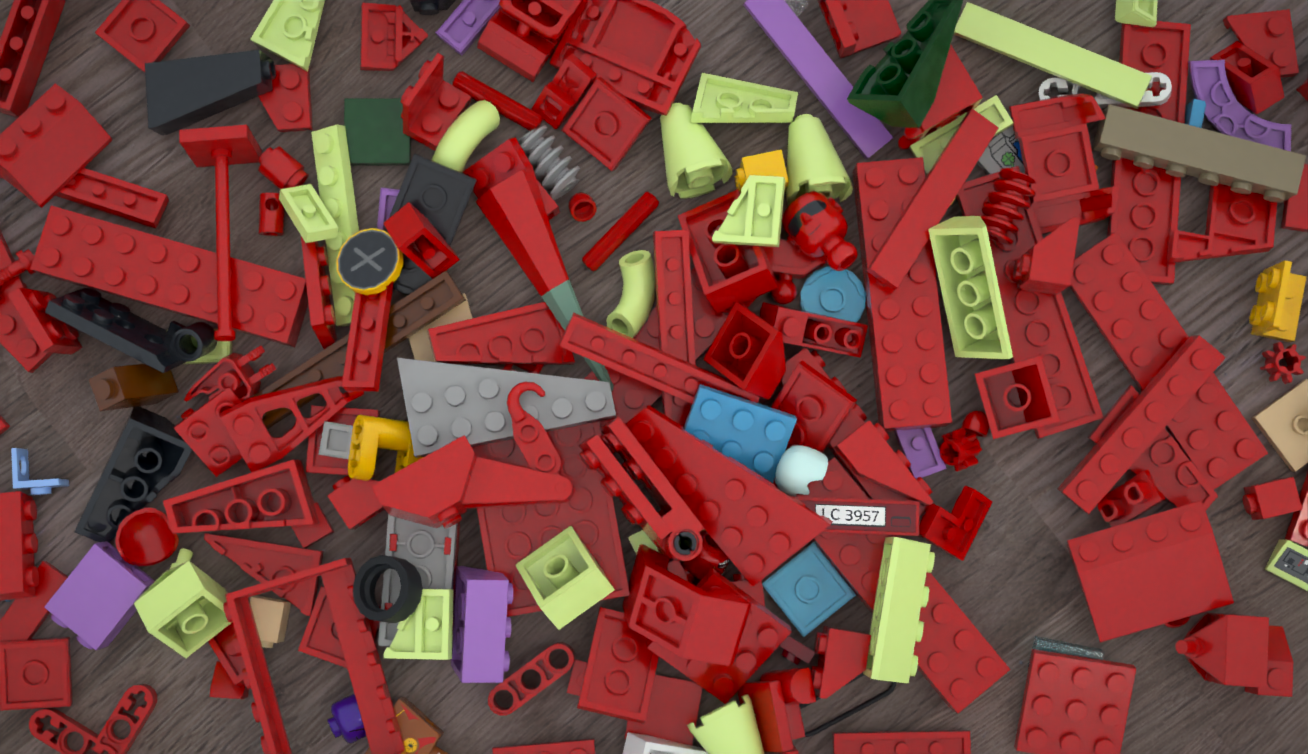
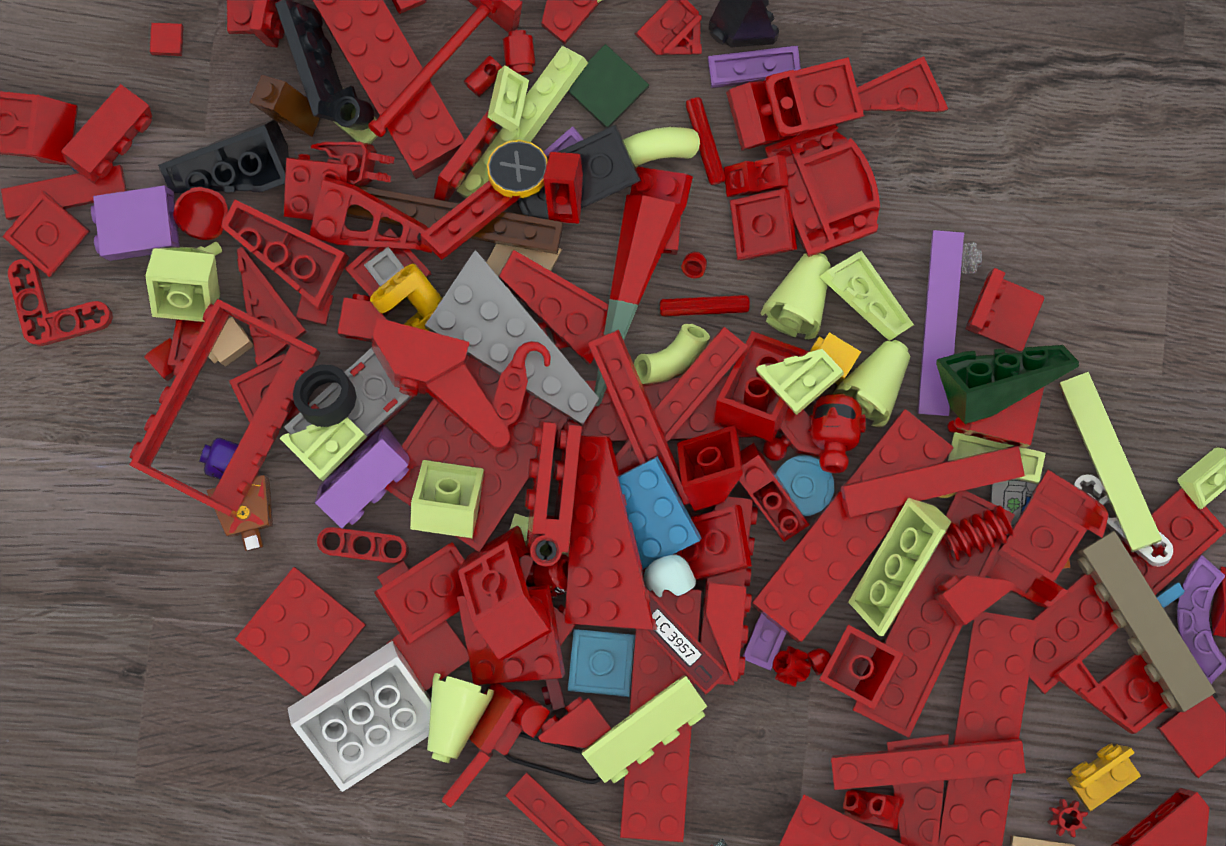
camera: 40 degrees right, 0 degrees up
(21, 478) = (156, 98): light blue bracket -> none
(431, 104) = (658, 103): red bracket -> none
(548, 164) = (699, 214): light grey piece -> none
(955, 530) = (739, 718): red plate -> none

